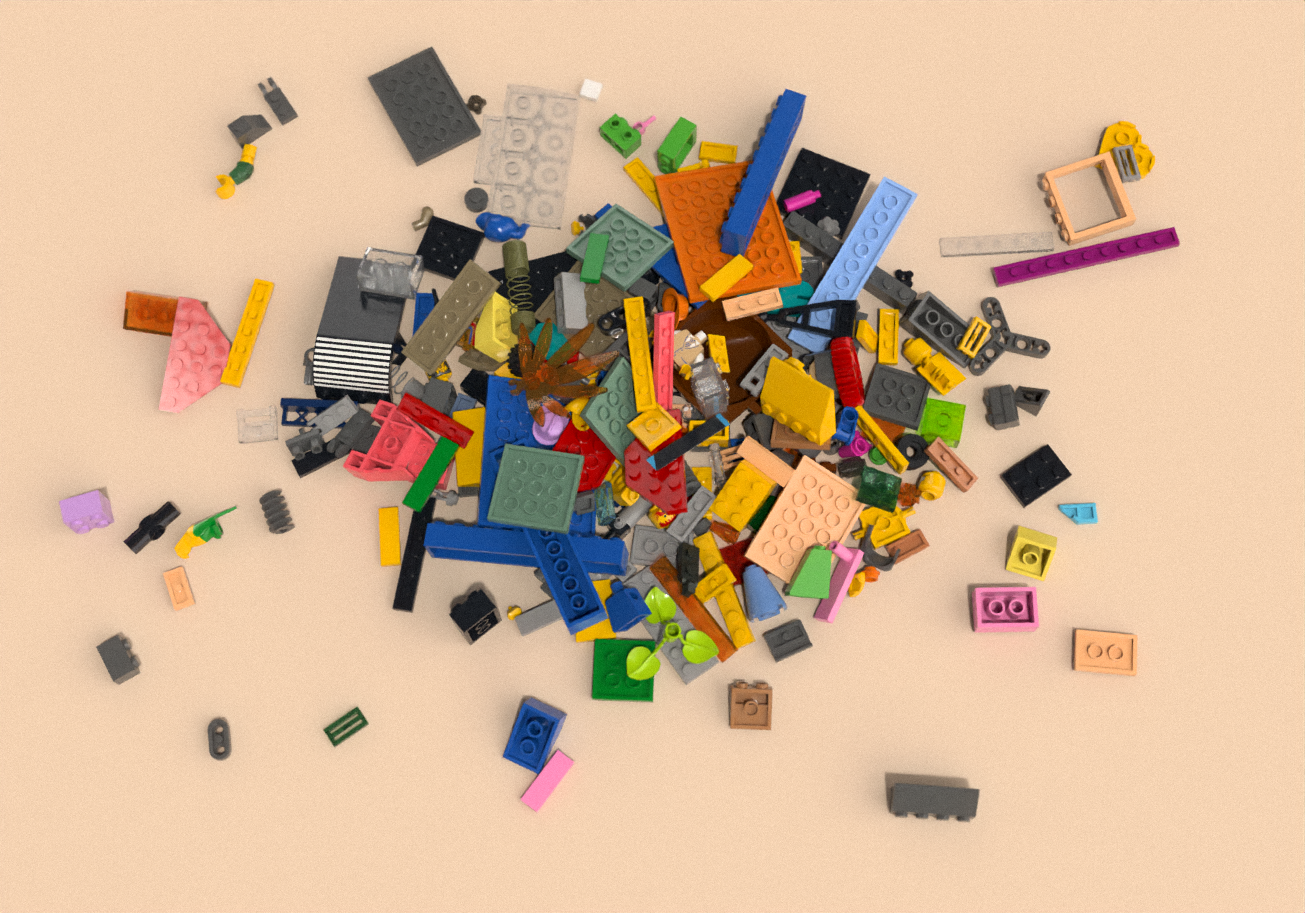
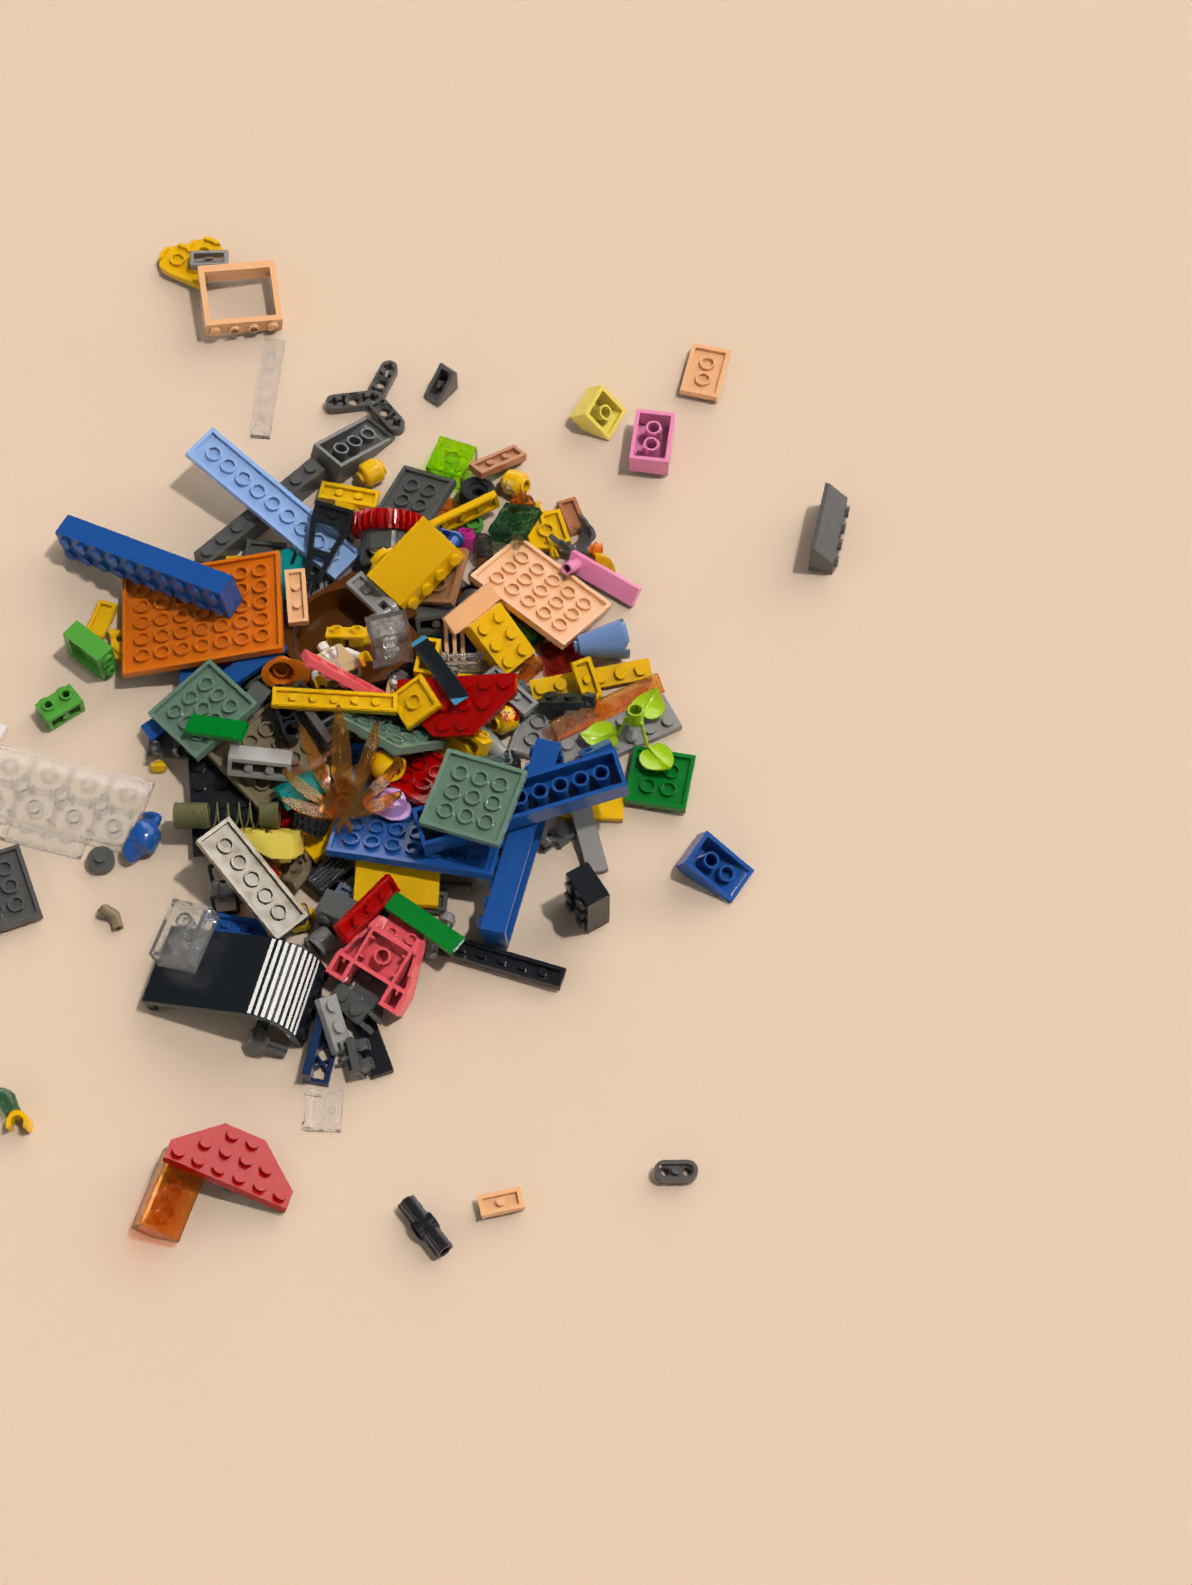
camera: 85 degrees left, 10 degrees down
(86, 512) = (399, 1287): lavender brick -> none
(119, 659) = (572, 1268): dark grey brick -> none
(201, 533) = (439, 1173): animal -> none
(247, 333) = (209, 1109): yellow plate -> none
(274, 512) = (434, 1092): dark grey piece -> none
(340, 721) = (671, 1032): clear green tile -> none
(389, 536) = (478, 986): yellow tile -> none
(448, 247) = (151, 891): black plate -> none
(547, 781) = (762, 863): bright pink tile -> none
(644, 124) = (50, 686): bright pink hand -> none
(644, 180) = (125, 690): yellow tile -> none
(726, 277) = (264, 612): yellow tile -> none
(751, 706) = (713, 670): medium nougat plate -> none
(788, 641) = (652, 631): dark grey plate -> none
(801, 200) = (181, 543): dark pink cylinder -> none
(812, 575) = (592, 593): bright green slope -> none
(829, 226) = (214, 526): light grey plant -> none
(837, 183) = (175, 523): black plate -> none
(908, 275) = (283, 469): black plate -> none
(941, 373) = (400, 455): yellow hinge -> none
(966, 350) = (366, 421): yellow tile -> none
(1003, 407) = (446, 409): dark grey brick -> none
(1035, 476) = (520, 398): black plate -> none
(1080, 513) = (564, 368): medium azure tile -> none
(1085, 257) = (300, 315): magenta plate -> none

